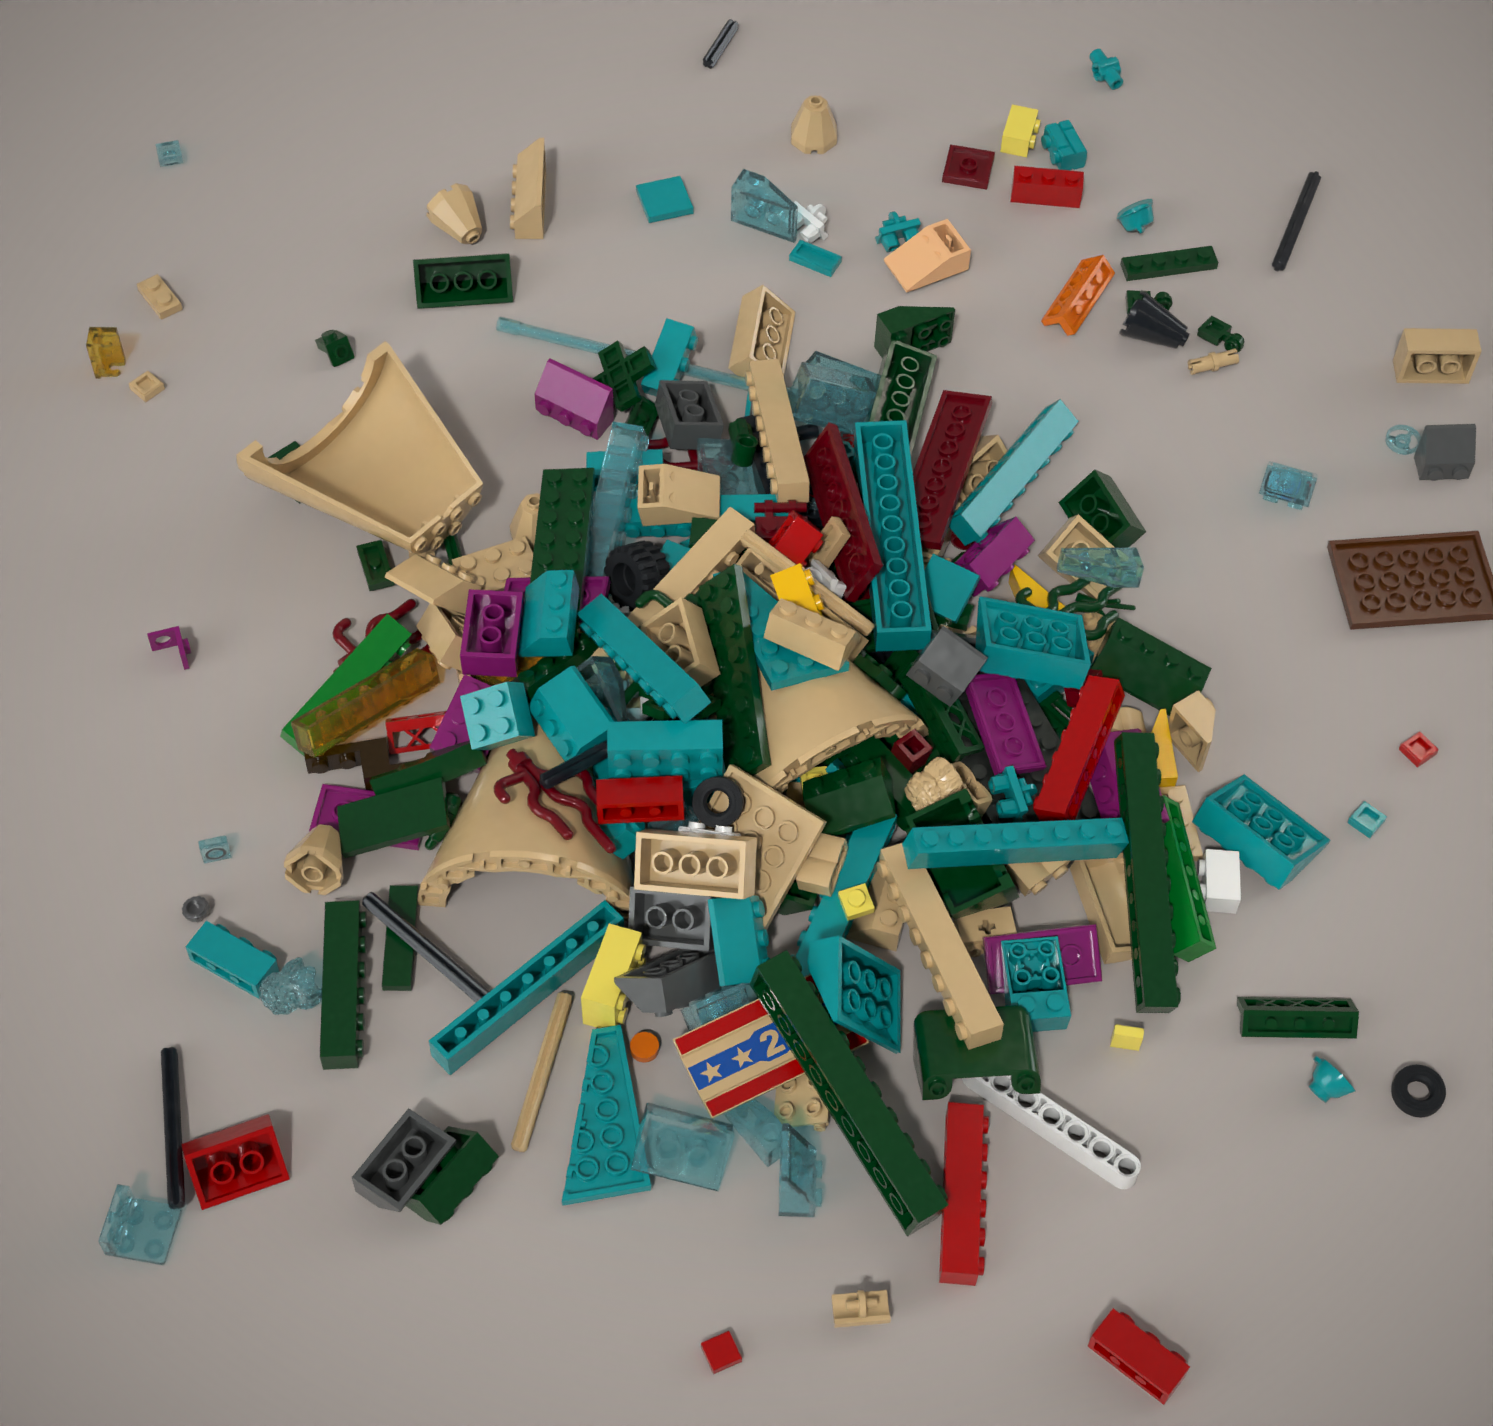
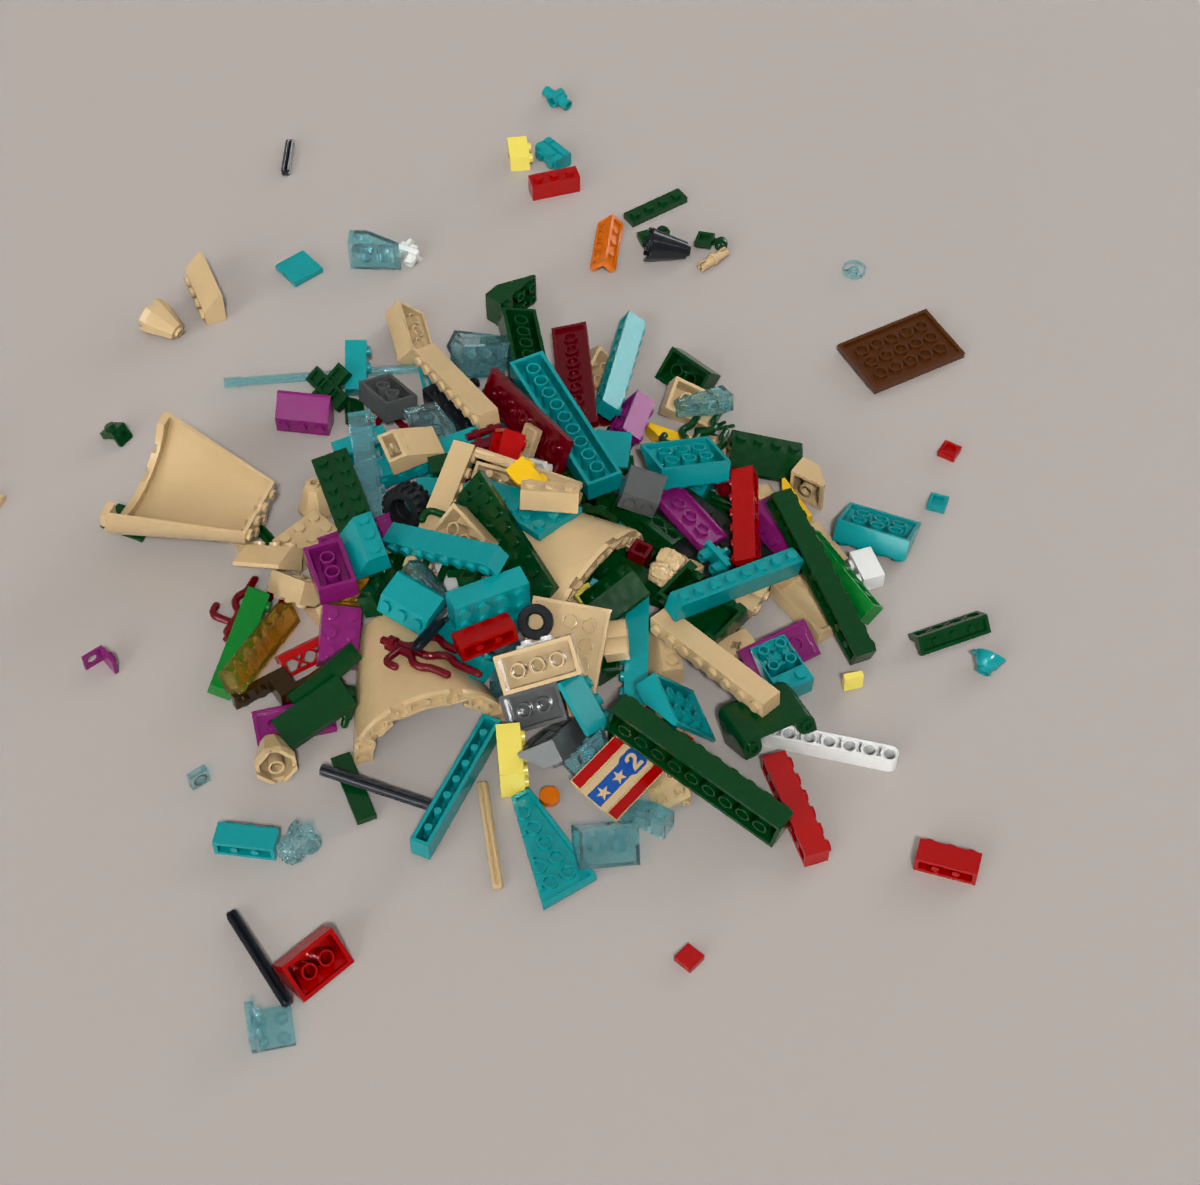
camera: 20 degrees left, 5 degrees down
(195, 909) = (204, 819): flat silver piece -> none
(342, 985) = (328, 825): dark green brick -> none
(374, 565) = (217, 563): dark green plate -> none
(402, 1162) = (428, 920): dark grey slope -> none
(454, 1176) = (458, 918): dark green slope -> none
(463, 280) = (186, 362): dark green slope -> none
(497, 716) = (360, 621): teal brick -> none
(742, 443) = (435, 402): dark green piece -> none
(798, 1175) = (687, 834): clear light blue slope -> none
(814, 126) = (379, 191): tan cone -> none
(815, 258) = (420, 275): teal tile -> none
(856, 902) = (648, 656): light yellow plate -> none
(860, 1308) = (765, 897): tan hips -> none
(896, 228) = (468, 238): teal hips -> none
(929, 256) = (498, 250): light nougat slope -> none
(968, 167) = (495, 186): dark red tile -> none
(1137, 215) = (621, 183): teal piece -> none
(1288, 485) = (796, 318): clear light blue slope -> none
(1296, 221) = (724, 157): black axle -> none
(1421, 1074) = (1044, 639): black tyre -> none
(1436, 355) = (852, 211): tan brick -> none
(1446, 452) = (885, 267): dark grey slope -> none

